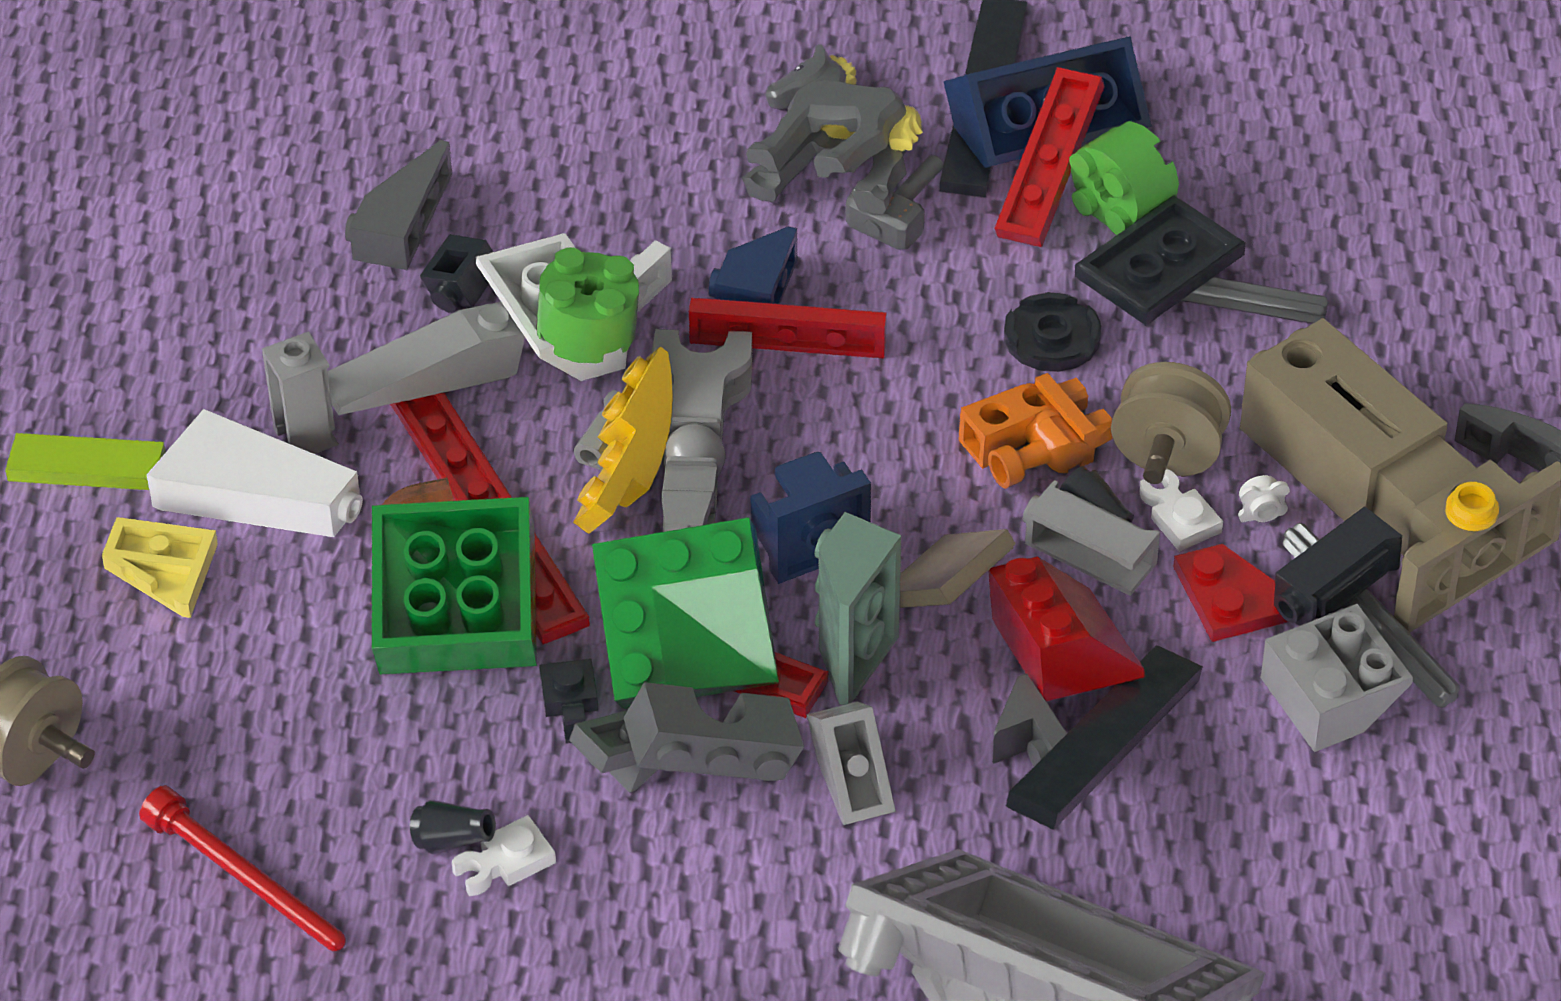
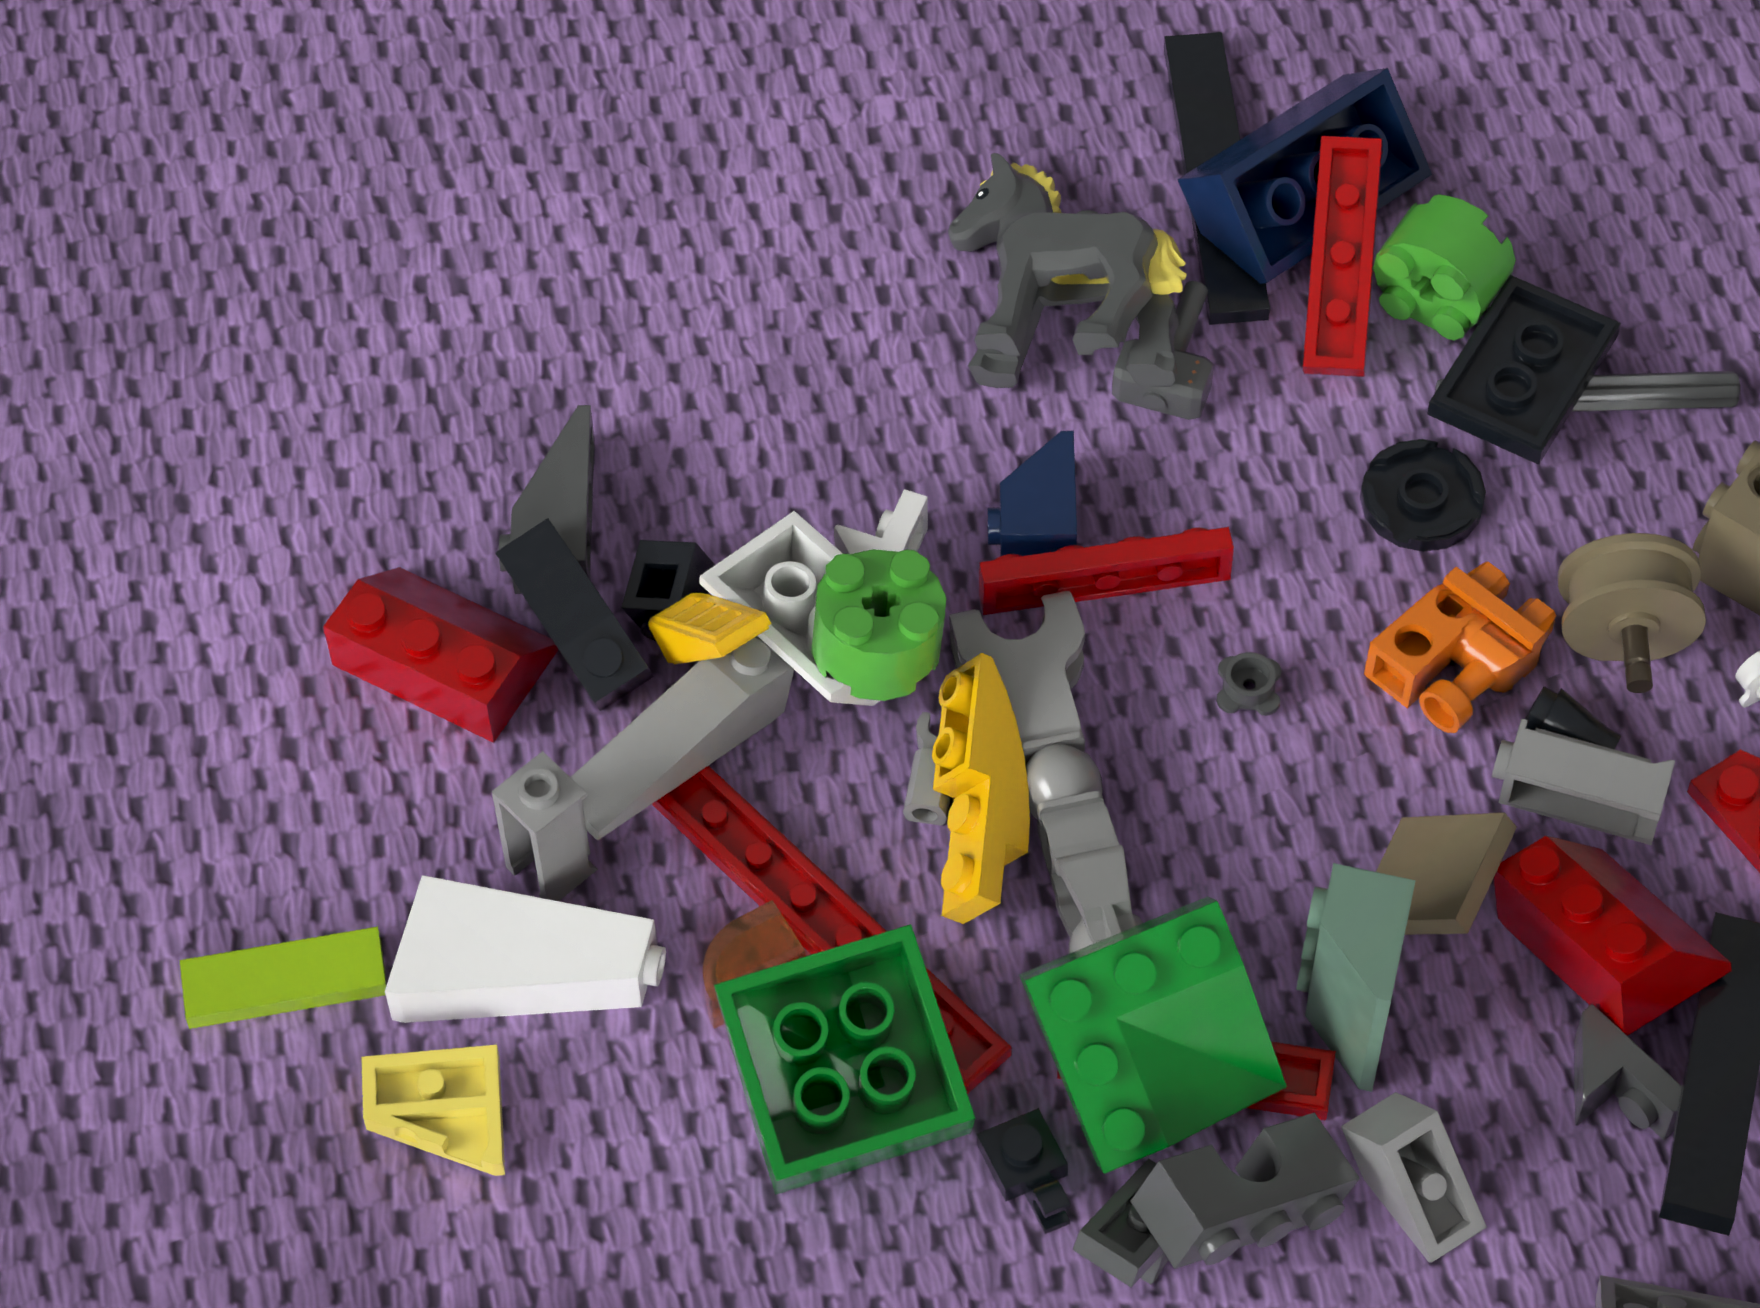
camera: 15 degrees left, 10 degrees up
(277, 277) = (437, 650): none -> red slope
(382, 273) = (574, 614): none -> black slope
(466, 291) = (705, 628): none -> yellow slope
(814, 503) = (1265, 839): dark blue panel -> none
(866, 424) = (1249, 668): none -> dark grey plate
(1181, 517) = (1672, 719): white plate -> none

